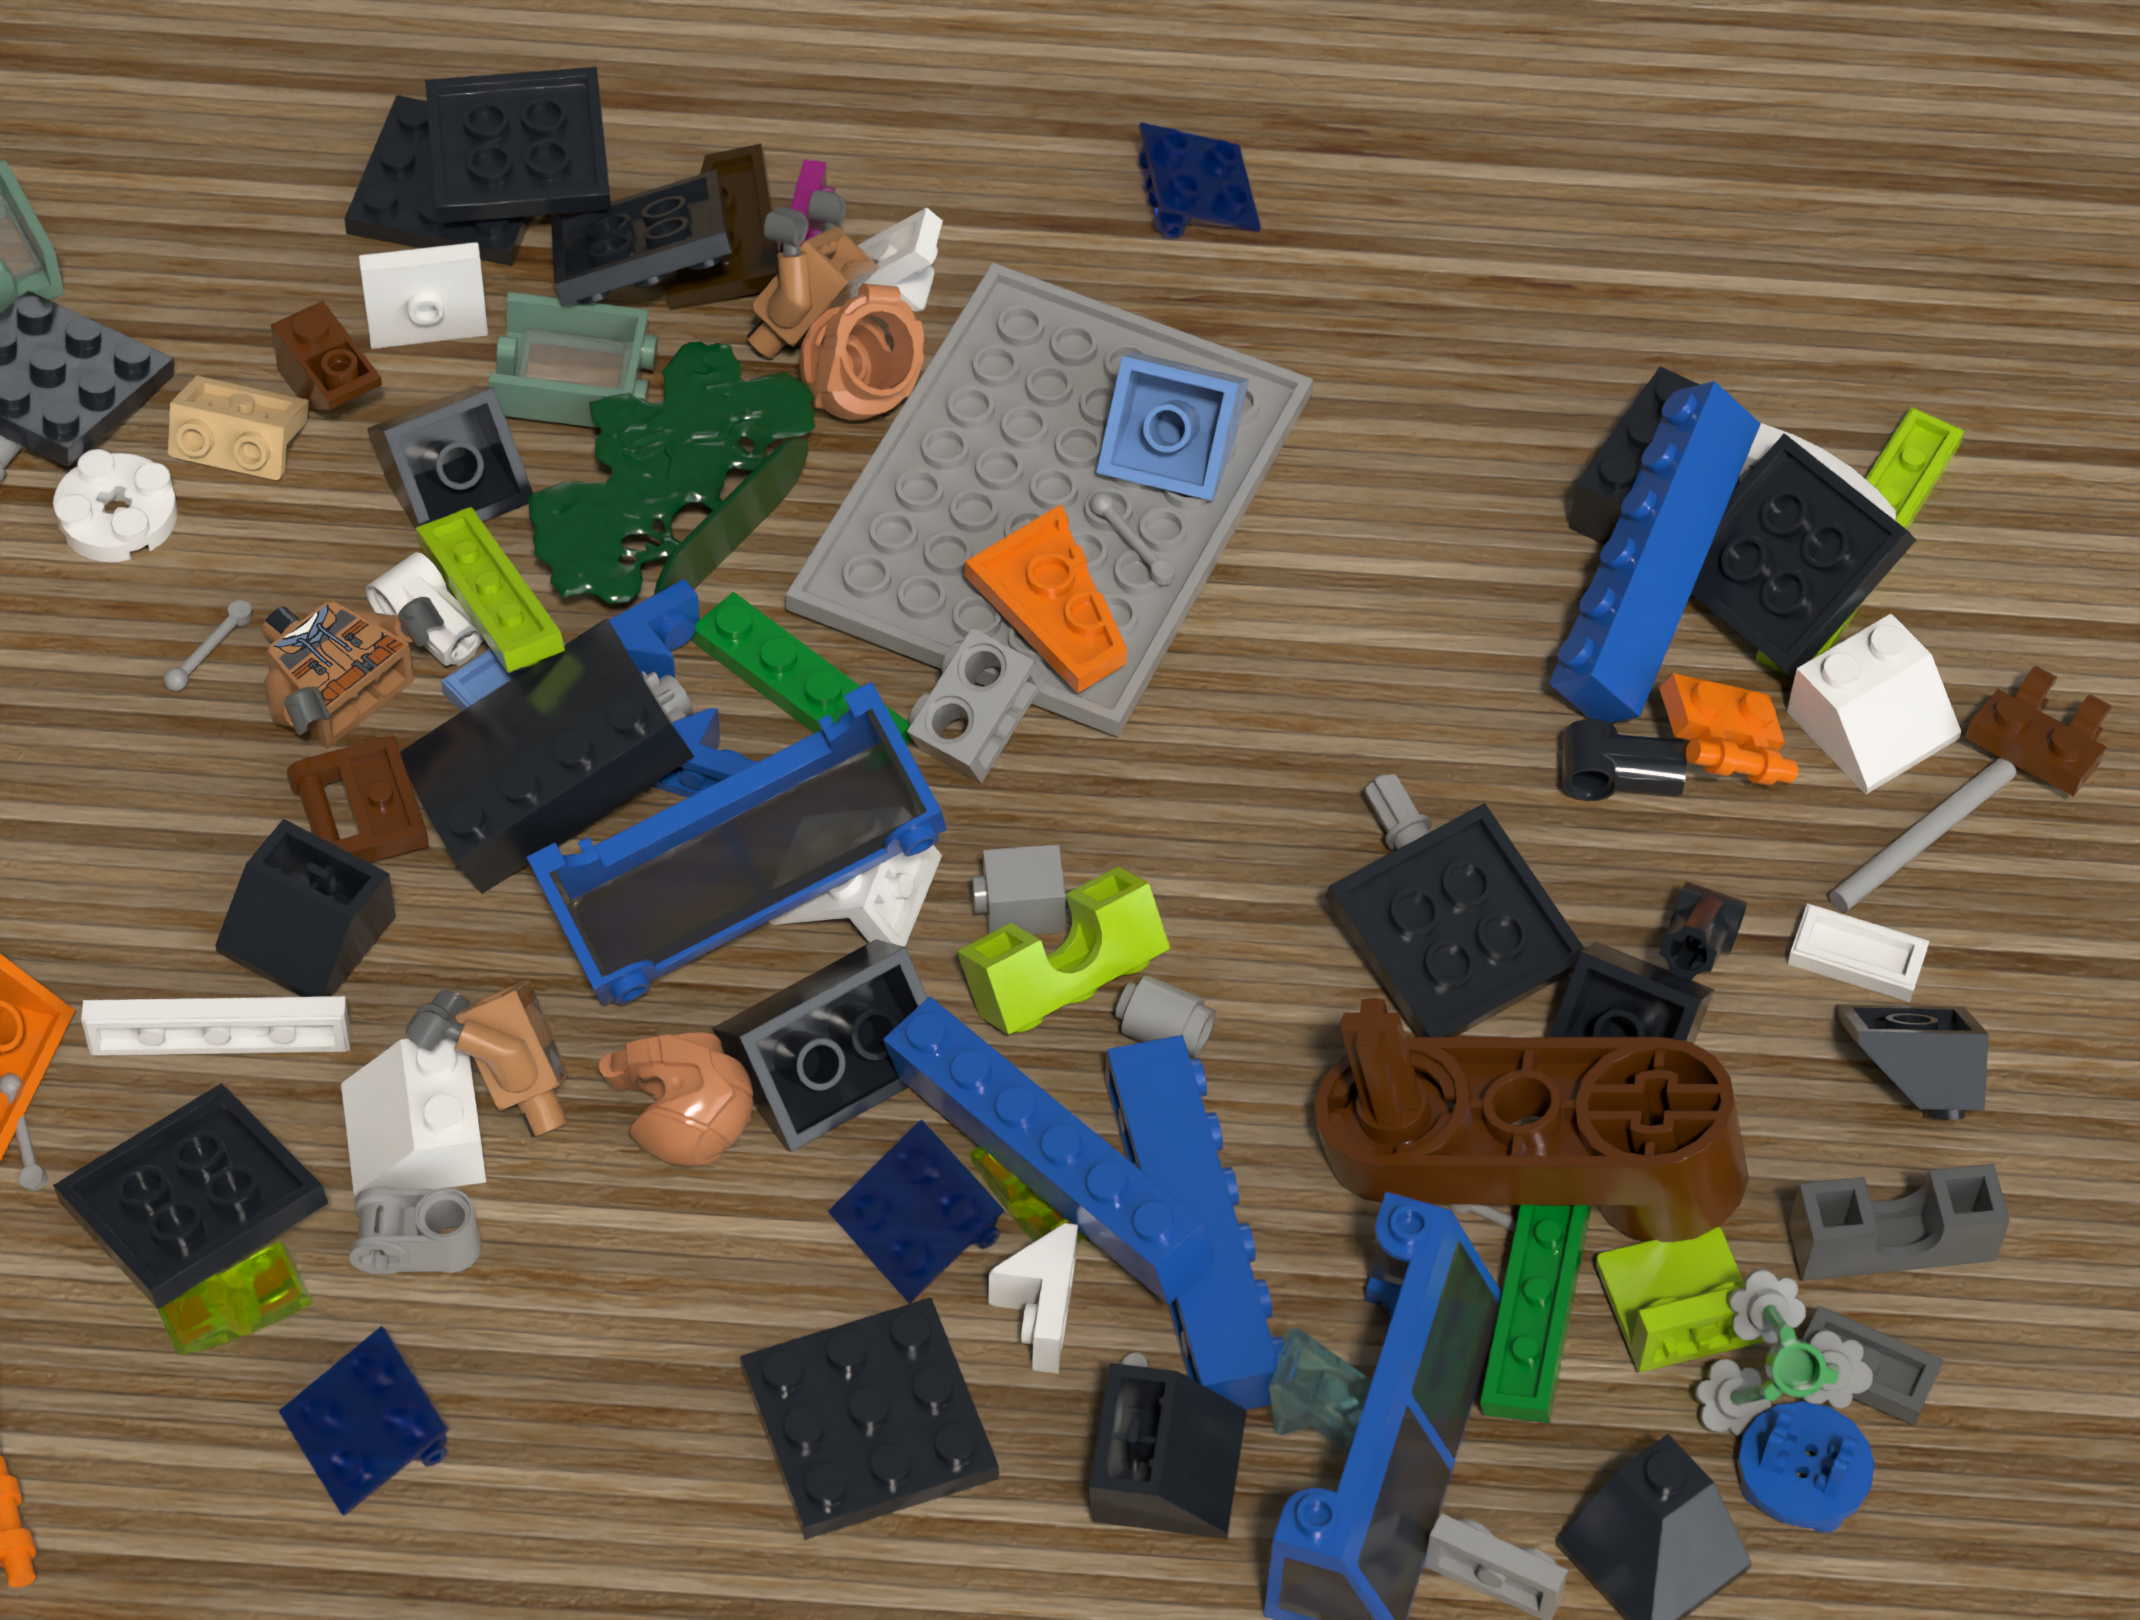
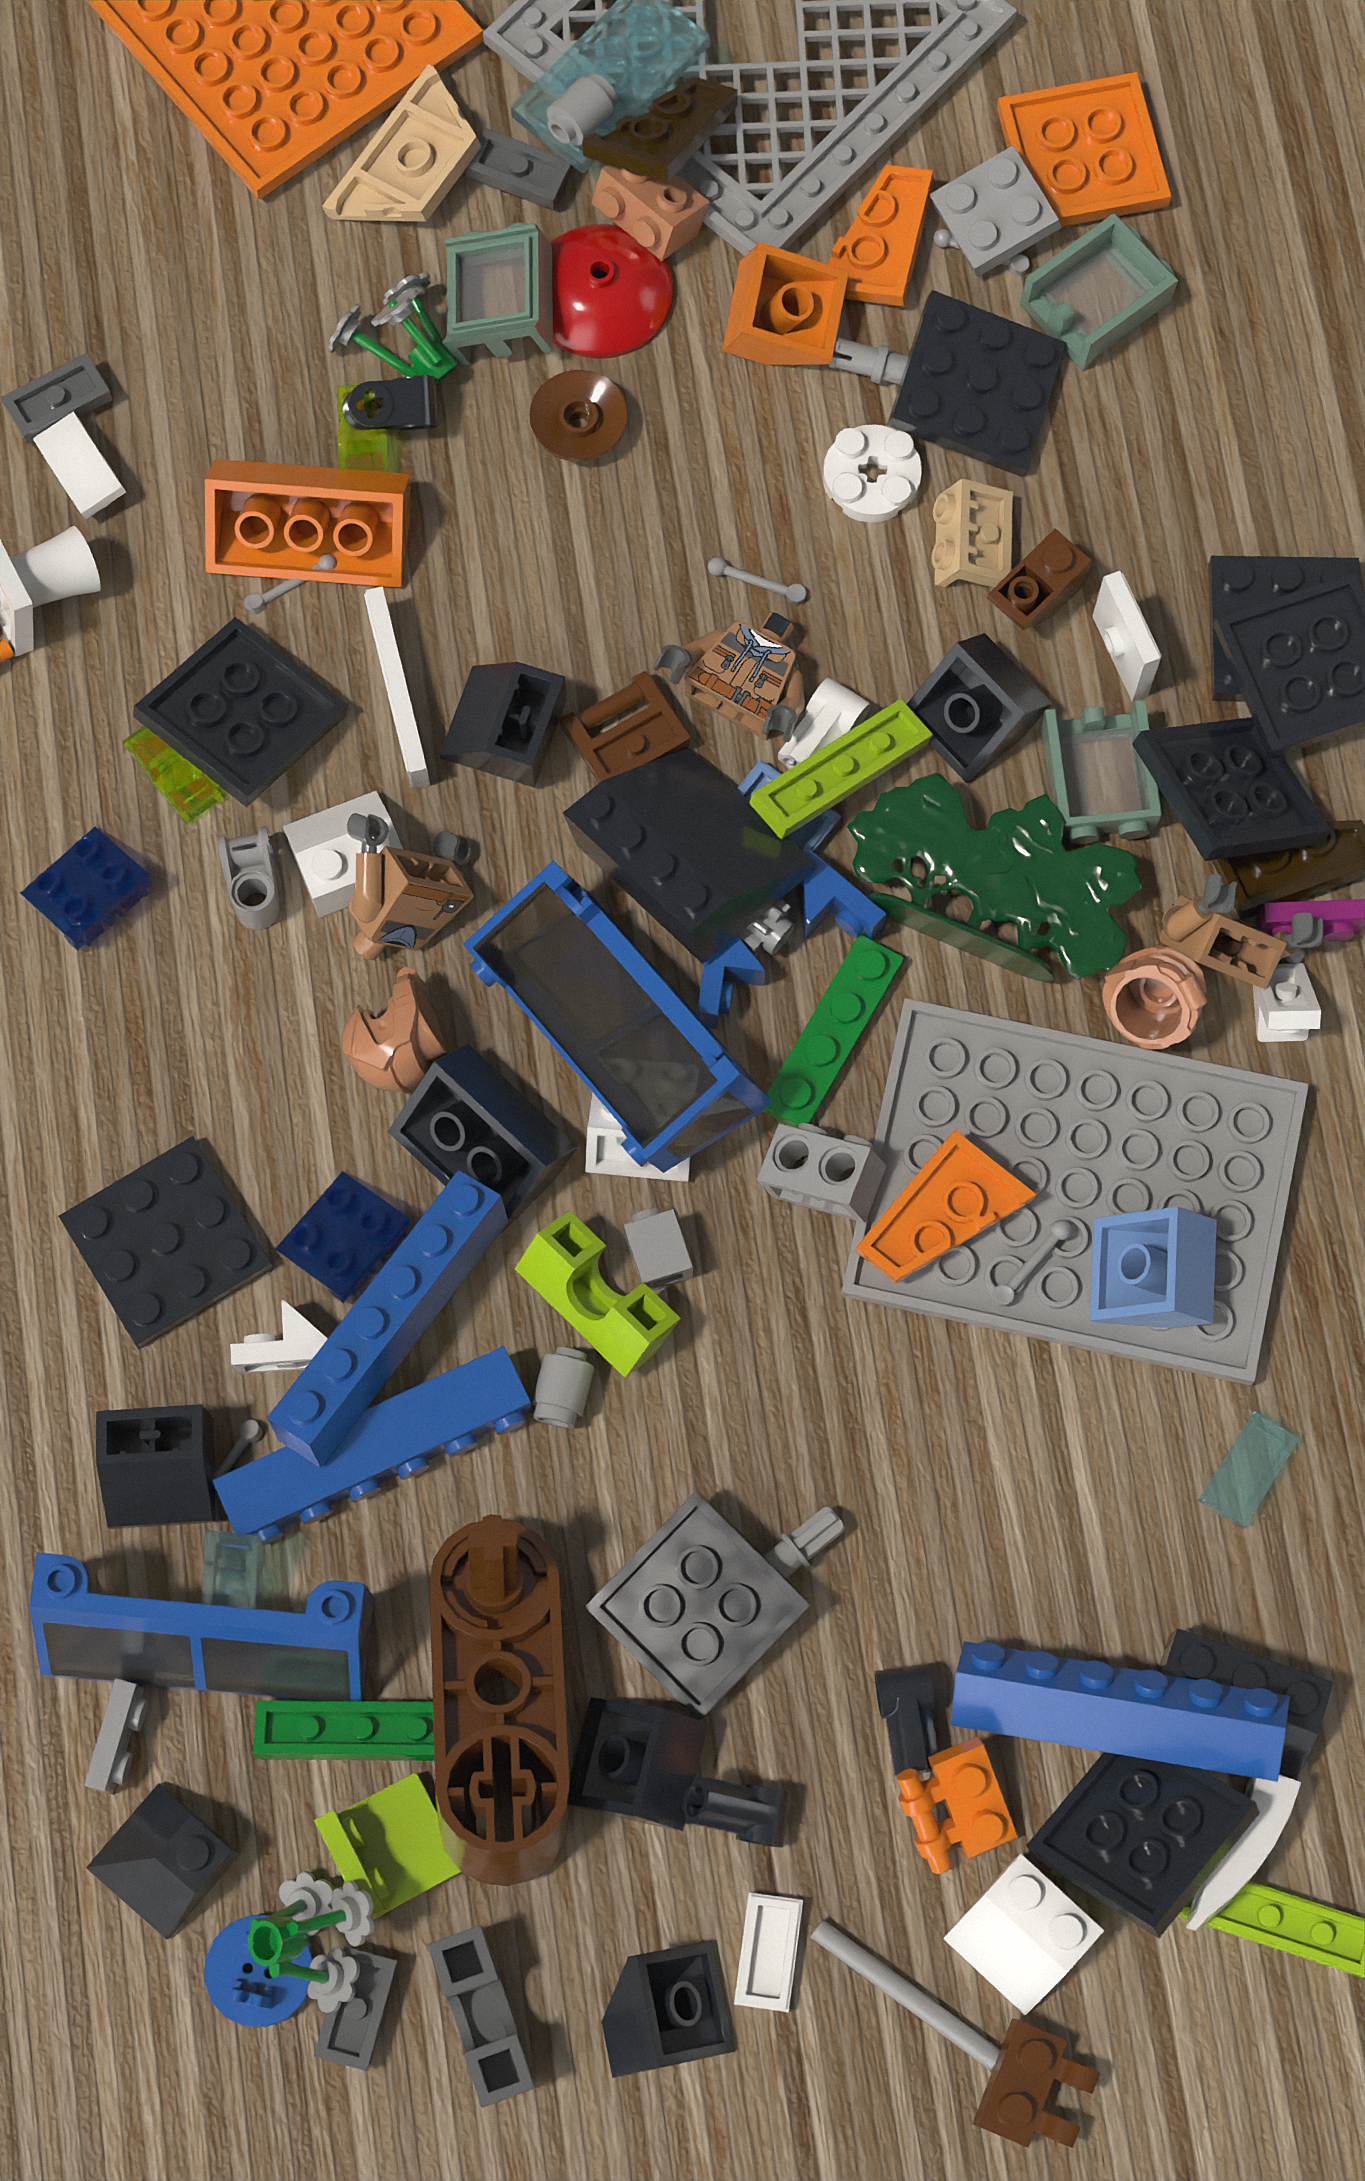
camera: 80 degrees right, 20 degrees up
(1404, 415) = (1248, 1469): none -> clear light blue tile

